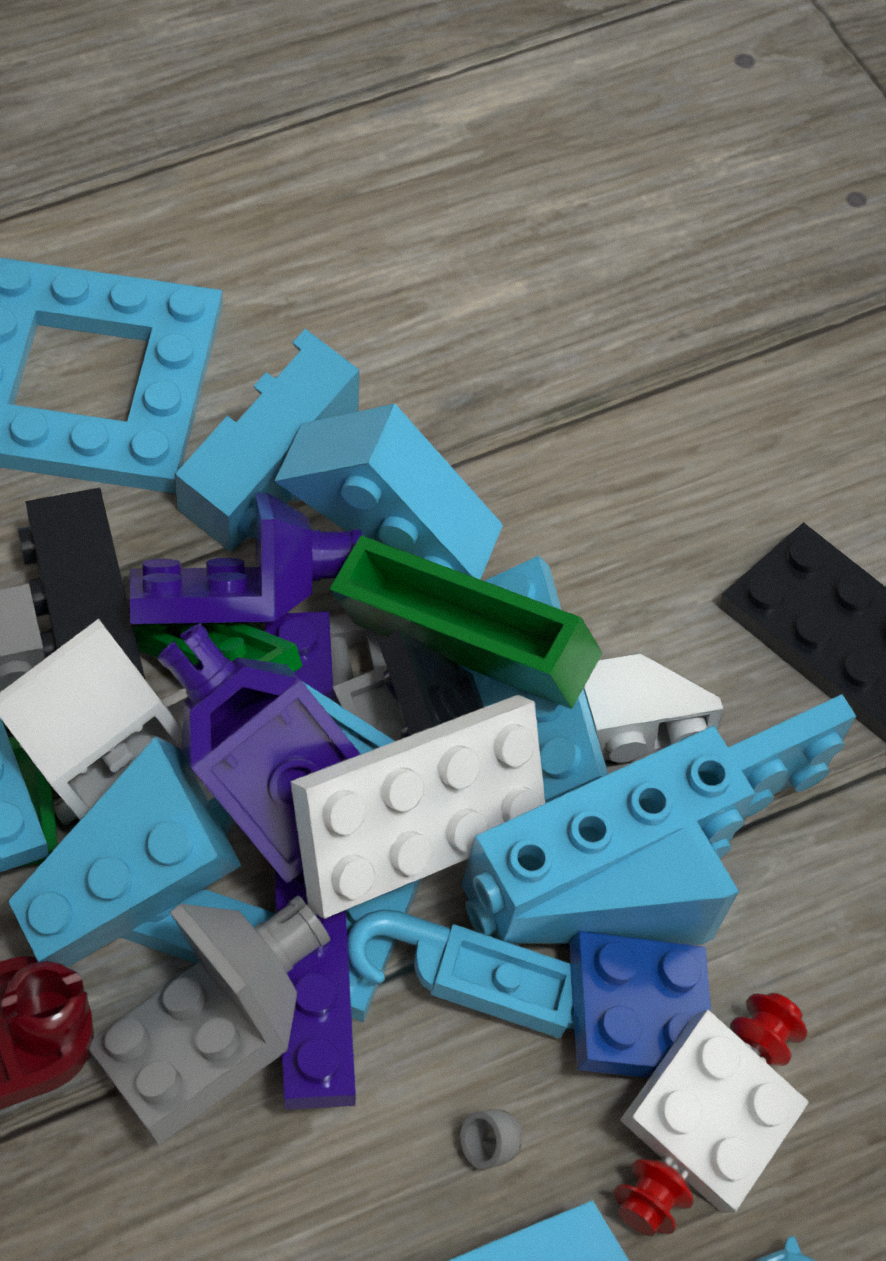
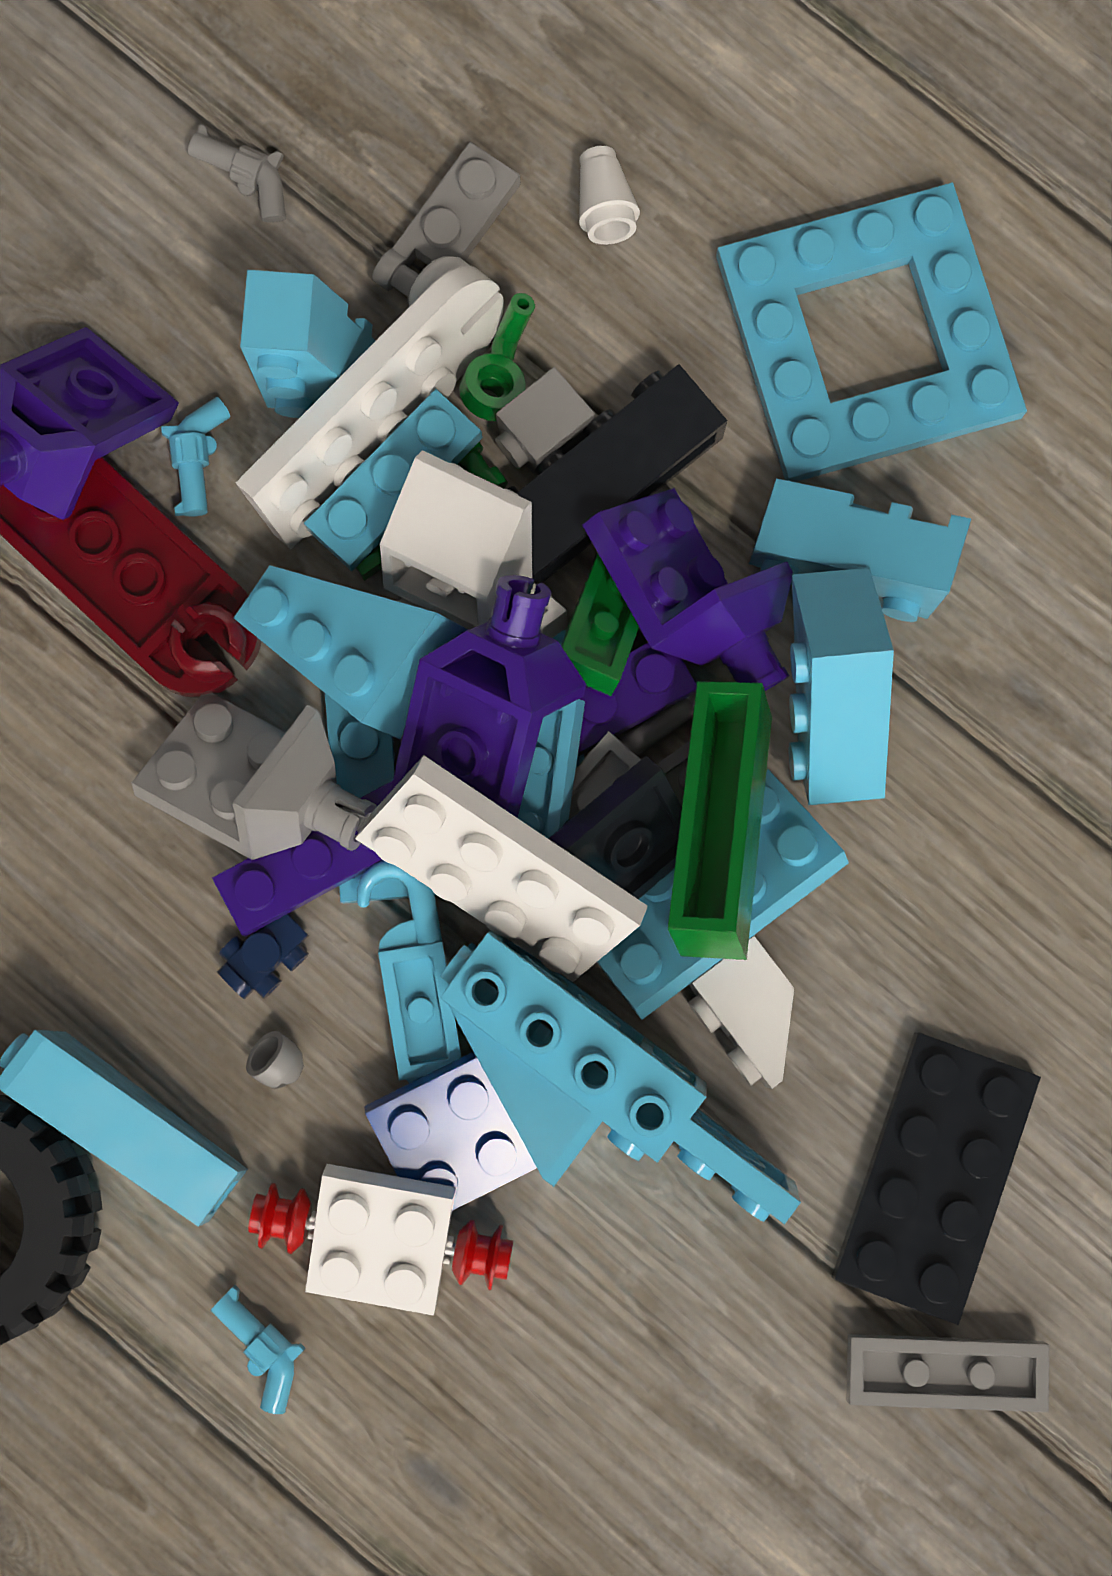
camera: 70 degrees right, 25 degrees up
(383, 1122) = (252, 962): none -> dark blue piece

